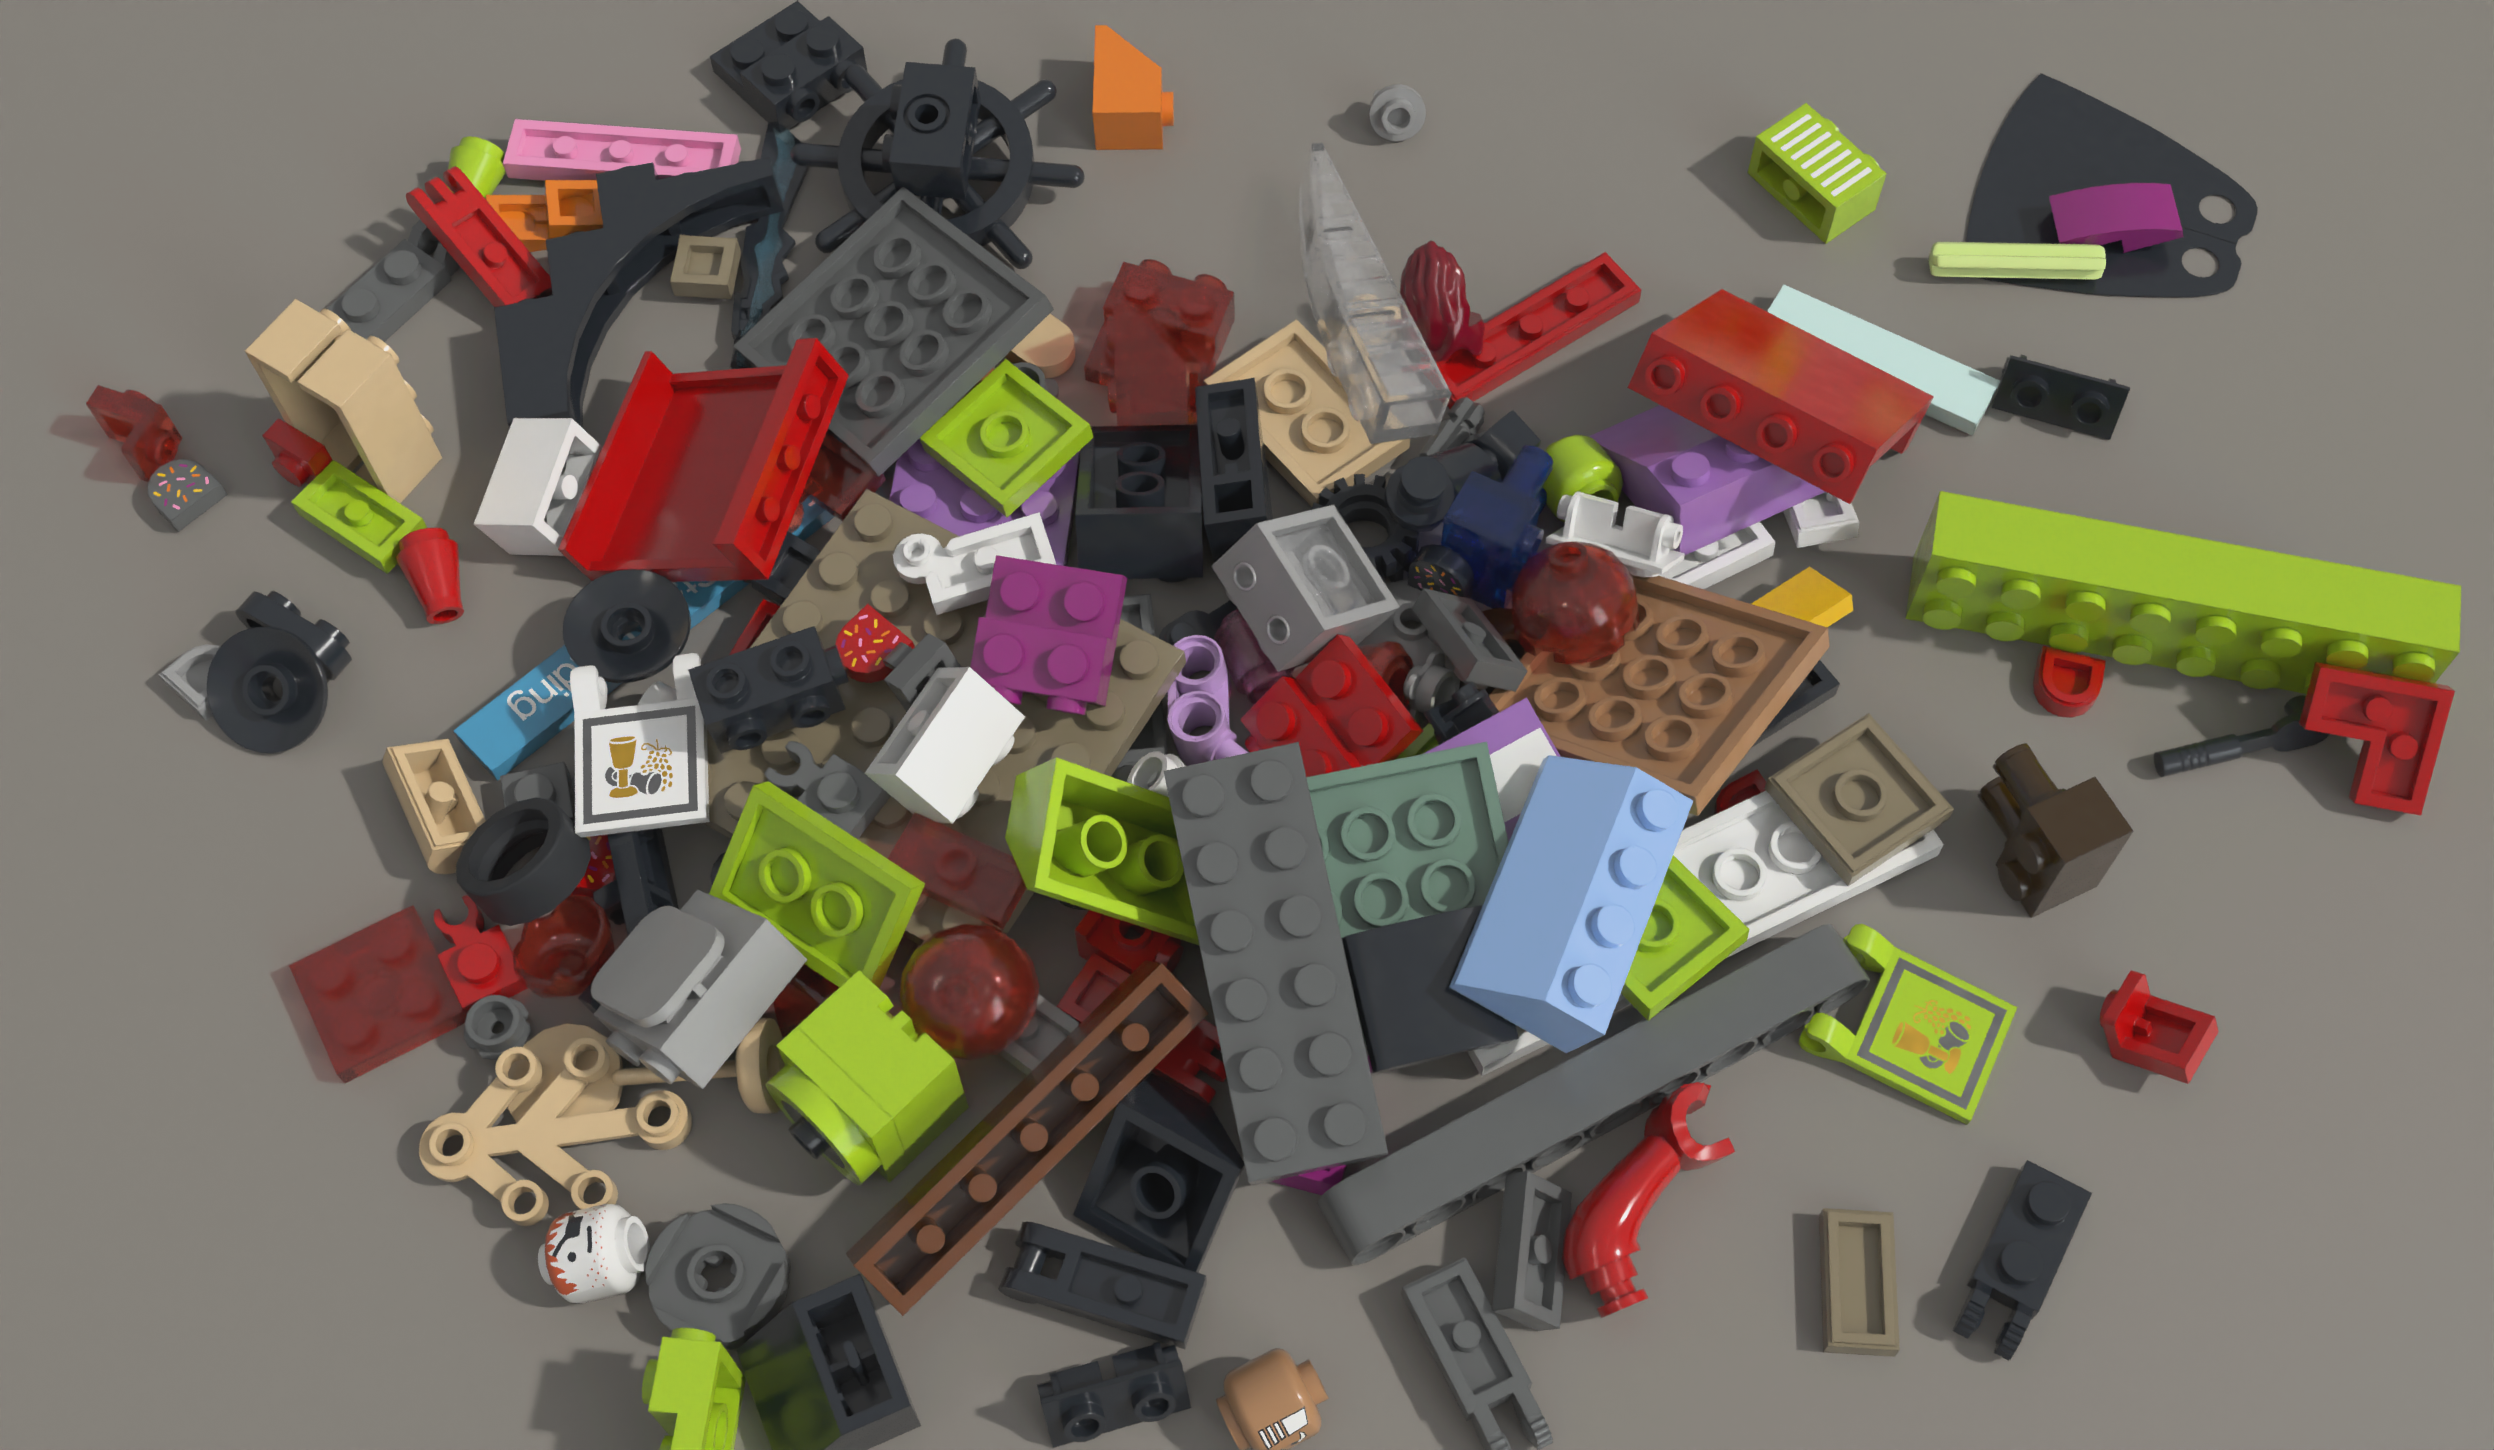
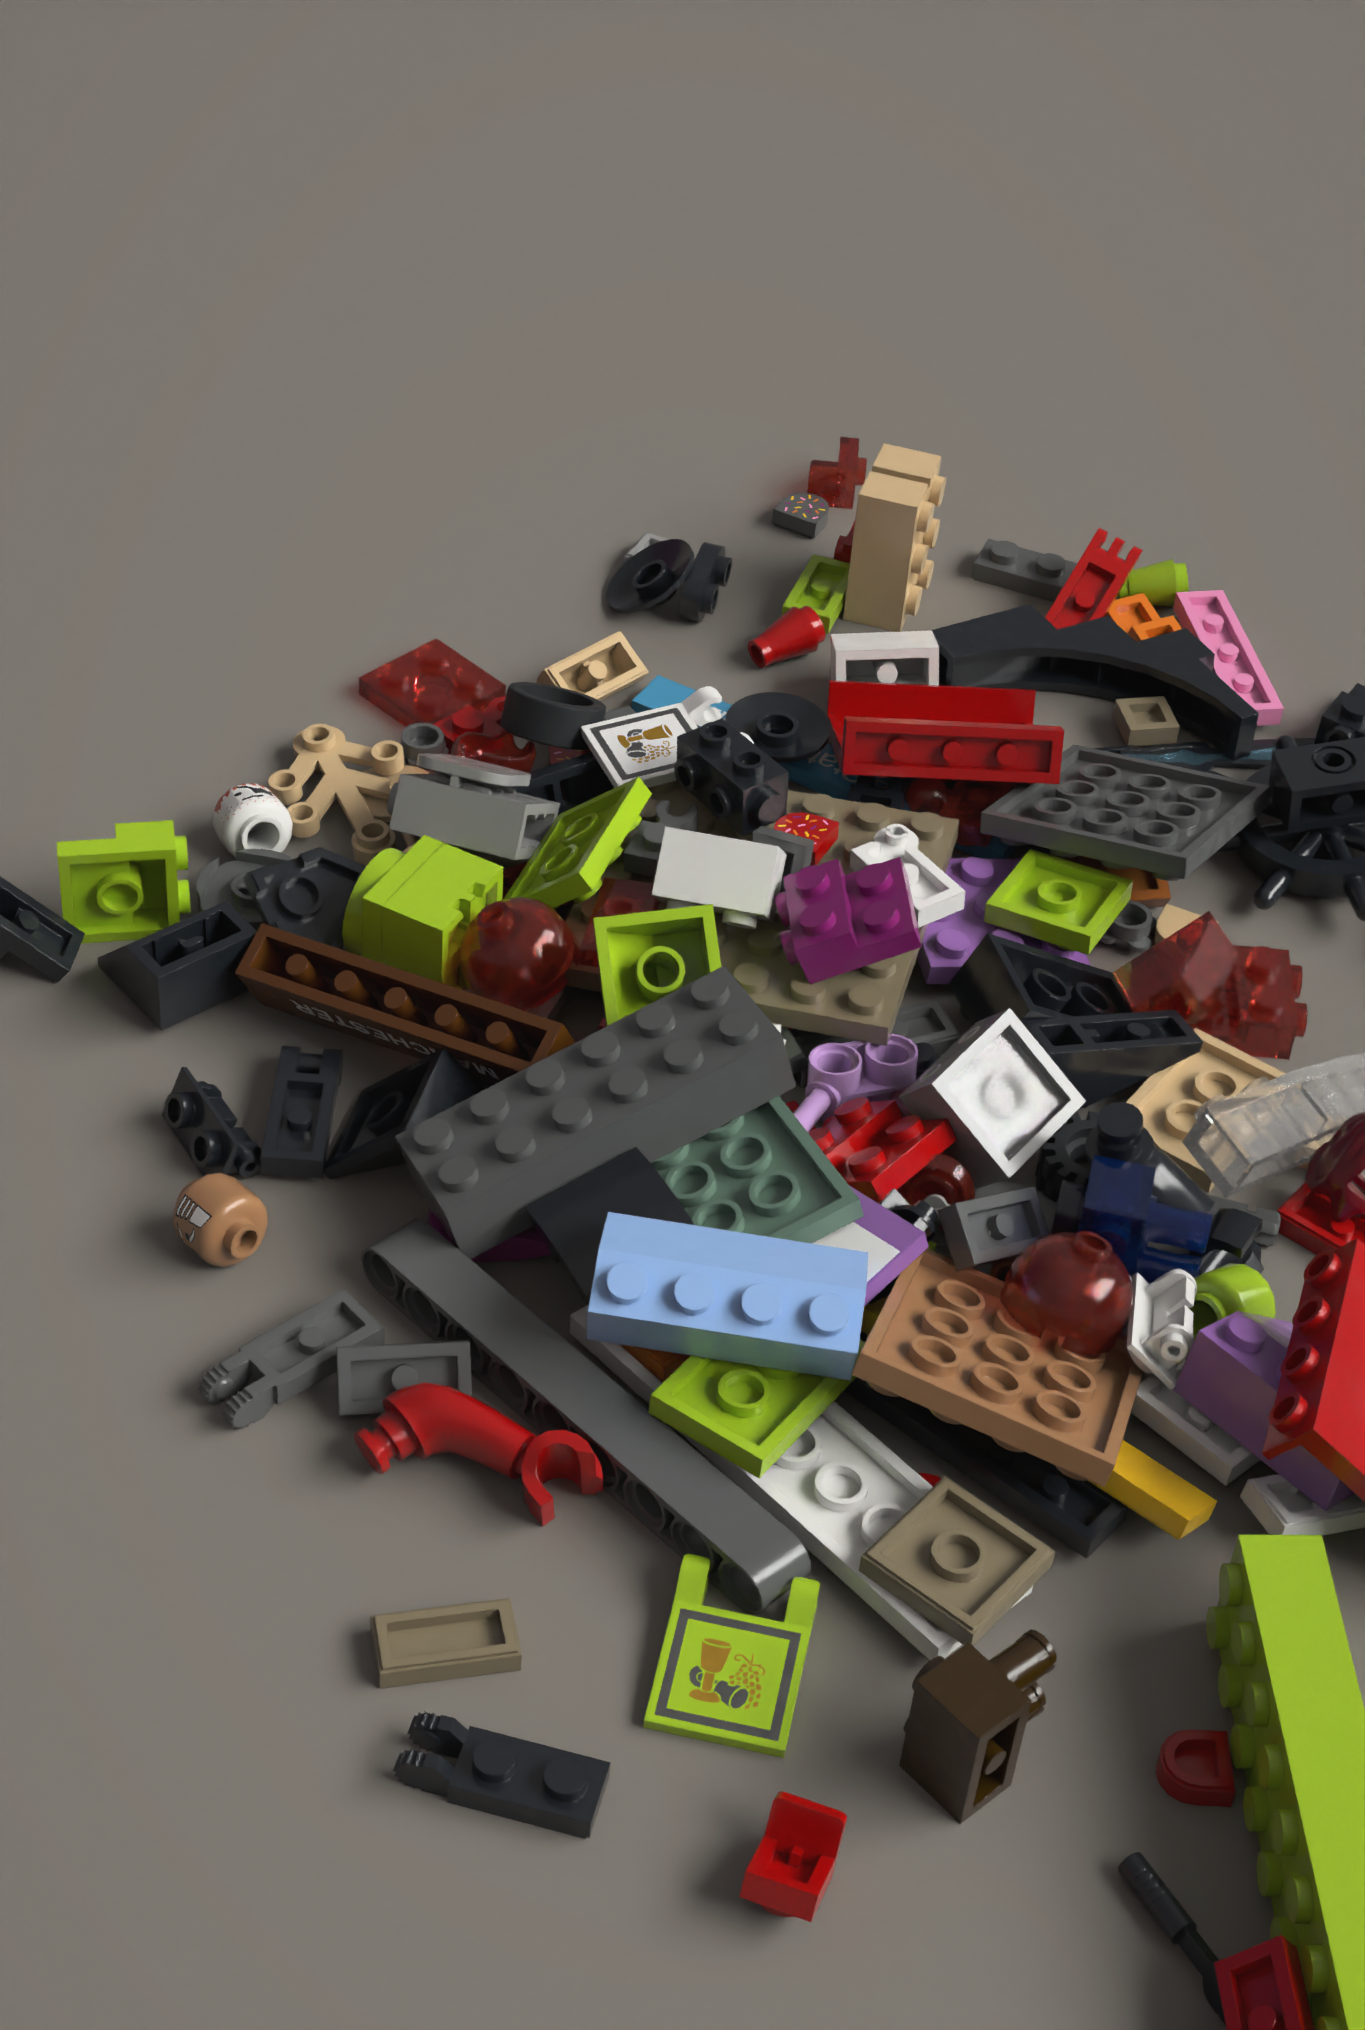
camera: 70 degrees right, 20 degrees down
(791, 1207) = (306, 894): none -> black plate

